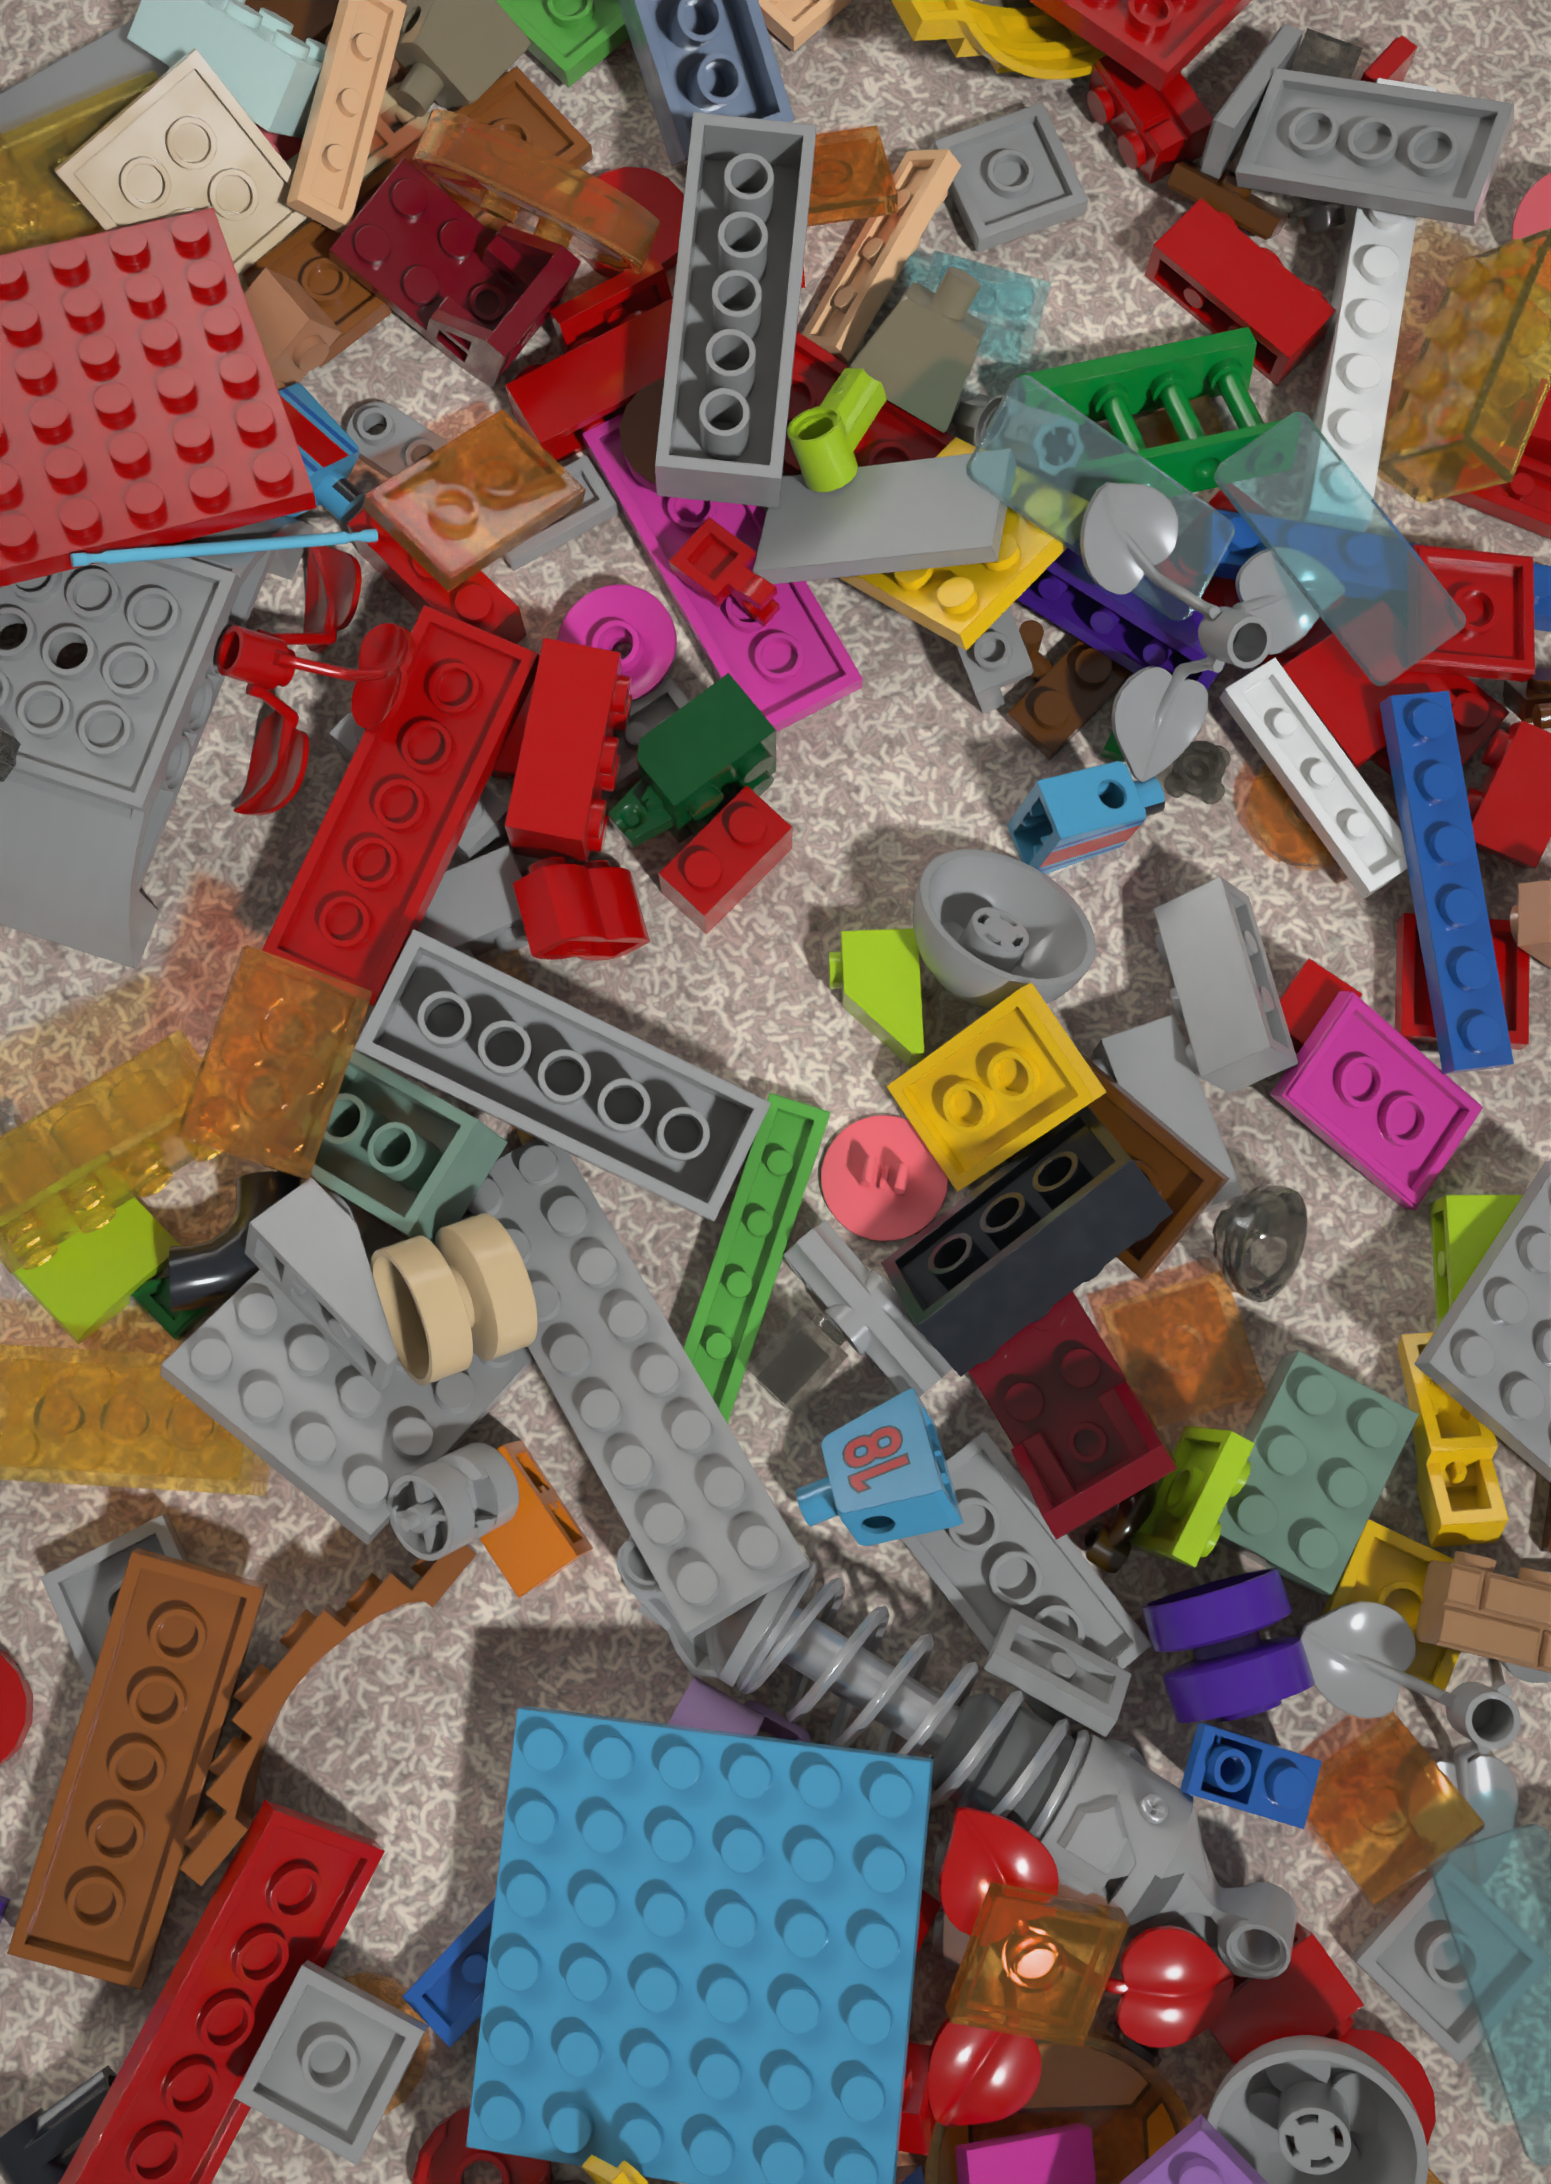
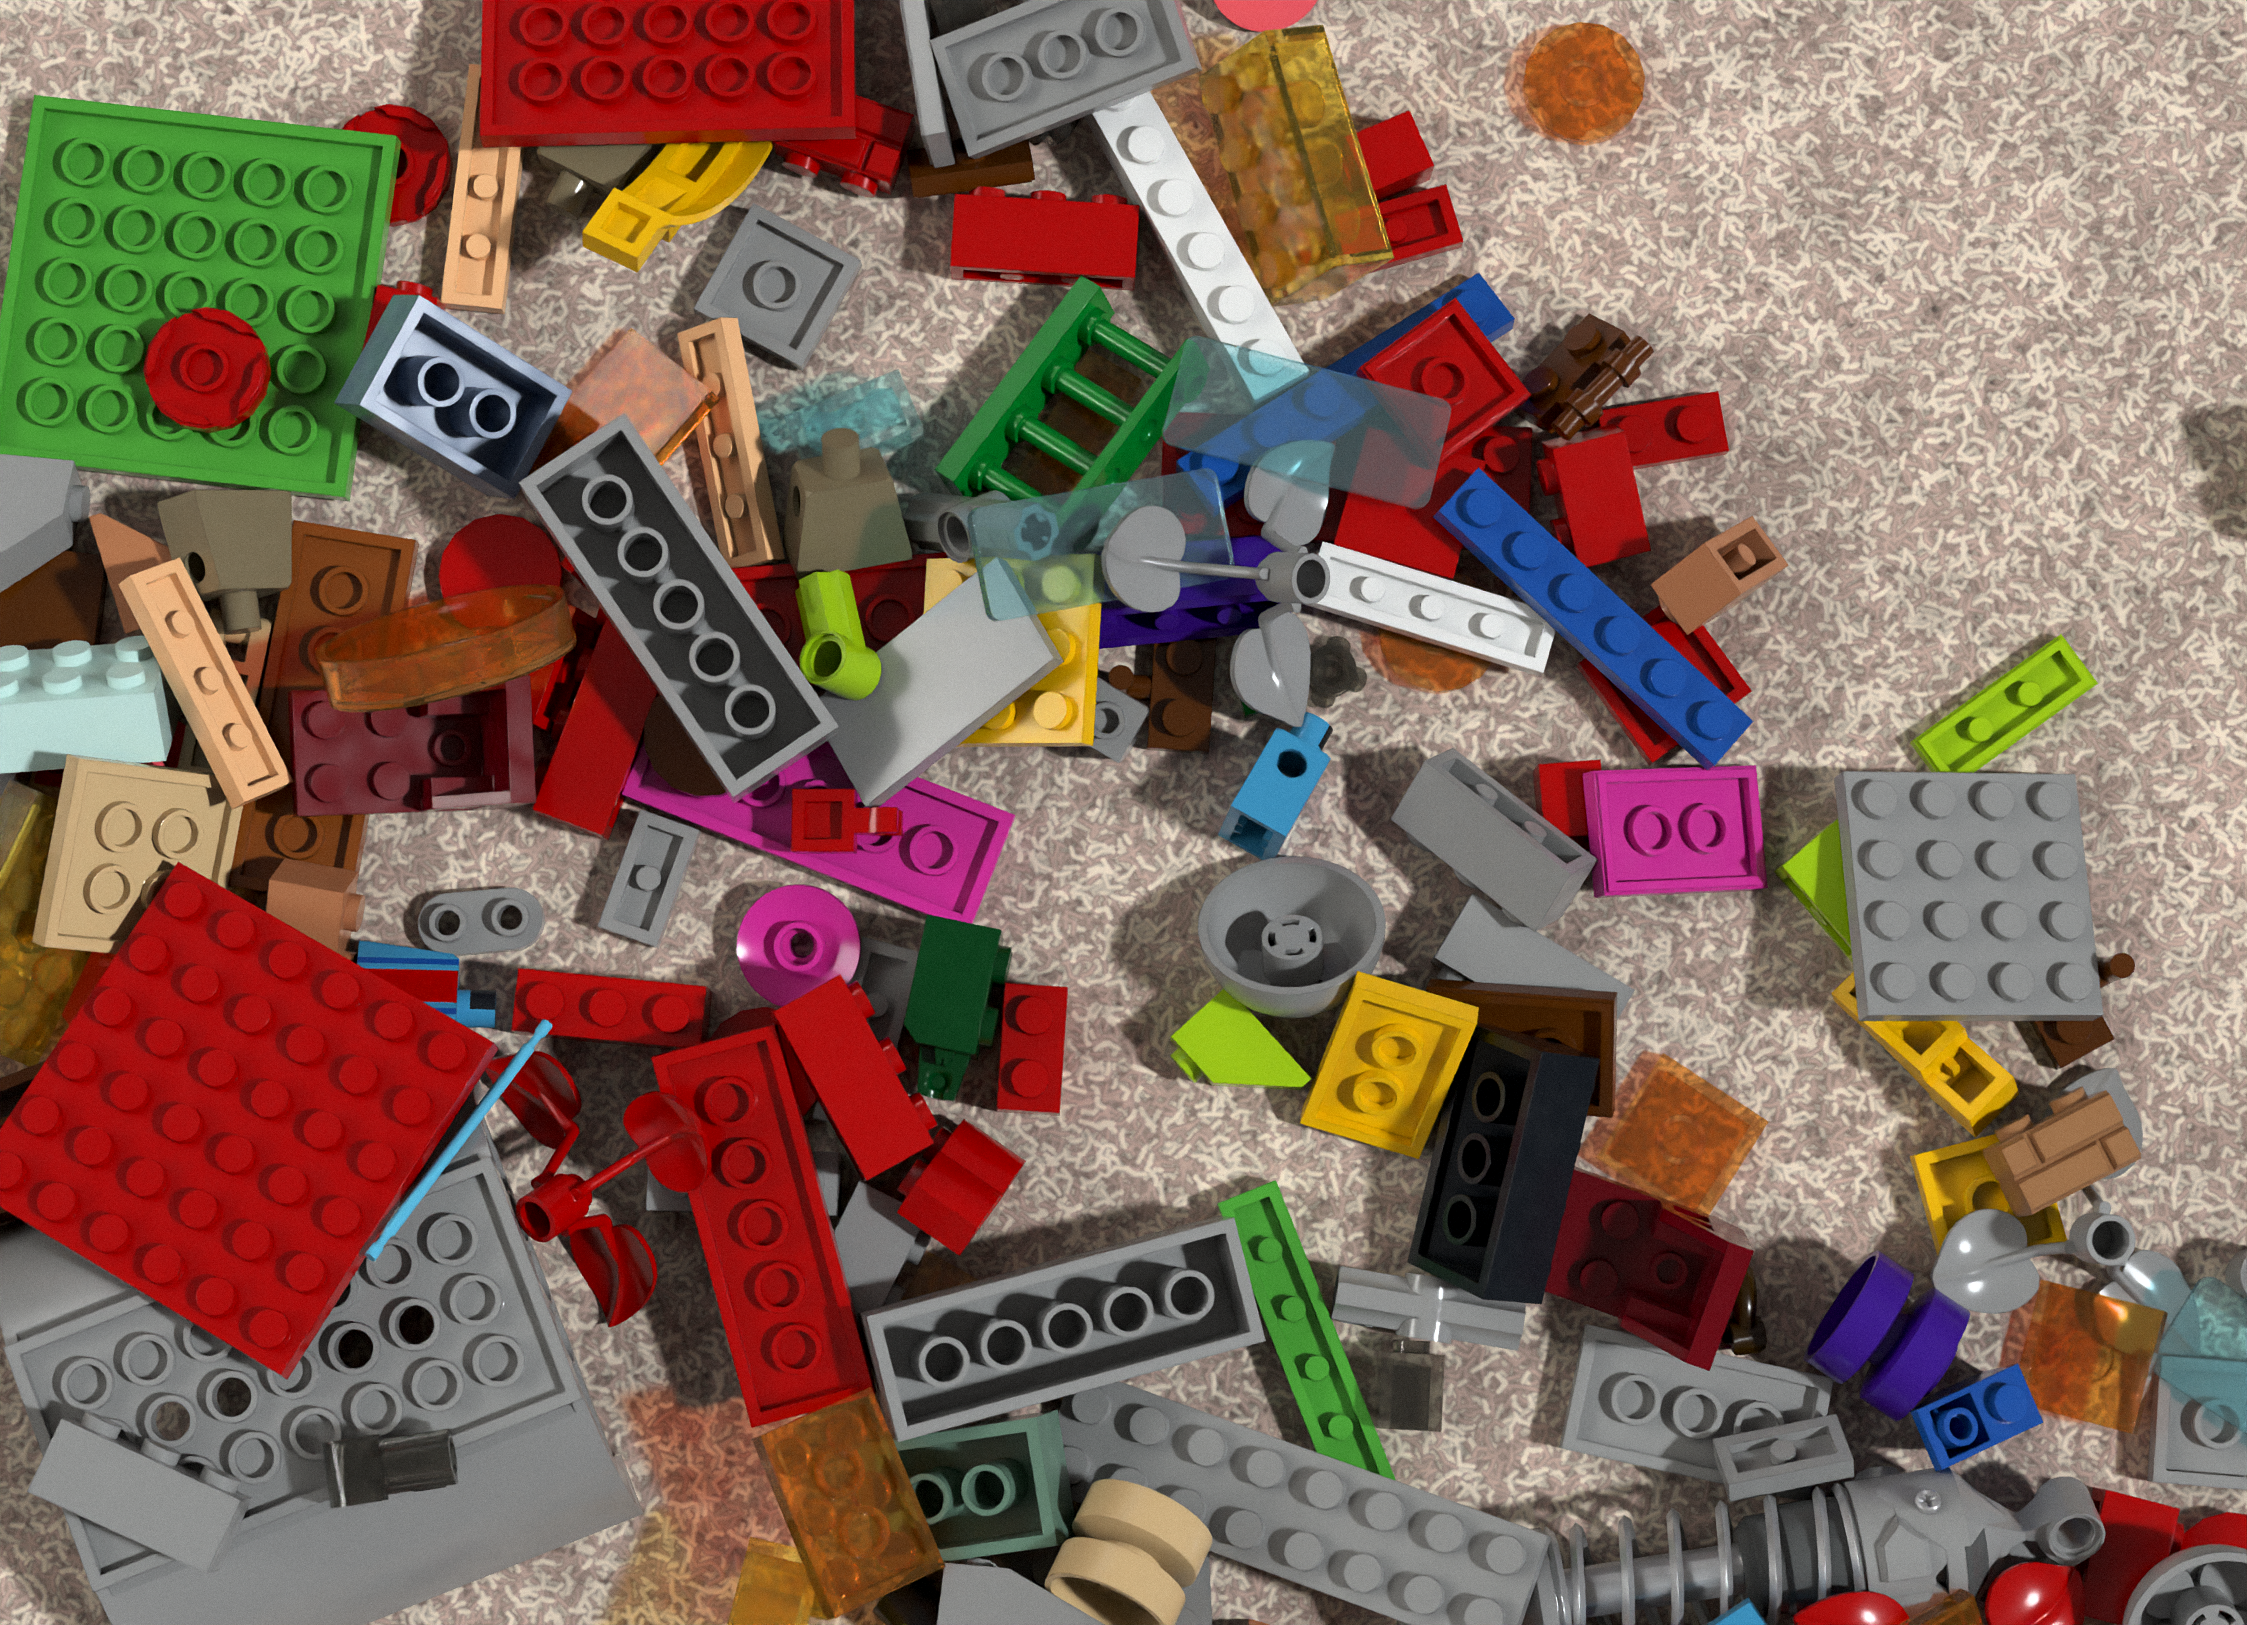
camera: 45 degrees left, 5 degrees up
(474, 499) = (596, 927): clear orange tile -> none
(882, 1179) = (1353, 1195): coral piece -> none
(884, 1475) = (1543, 1420): dark azure torso -> none
(1192, 1497) = (1781, 1261): lime plate -> none
(1261, 1241) = (1674, 1012): clear smoke piece -> none
(1313, 1472) = (1844, 1158): sand green brick -> none

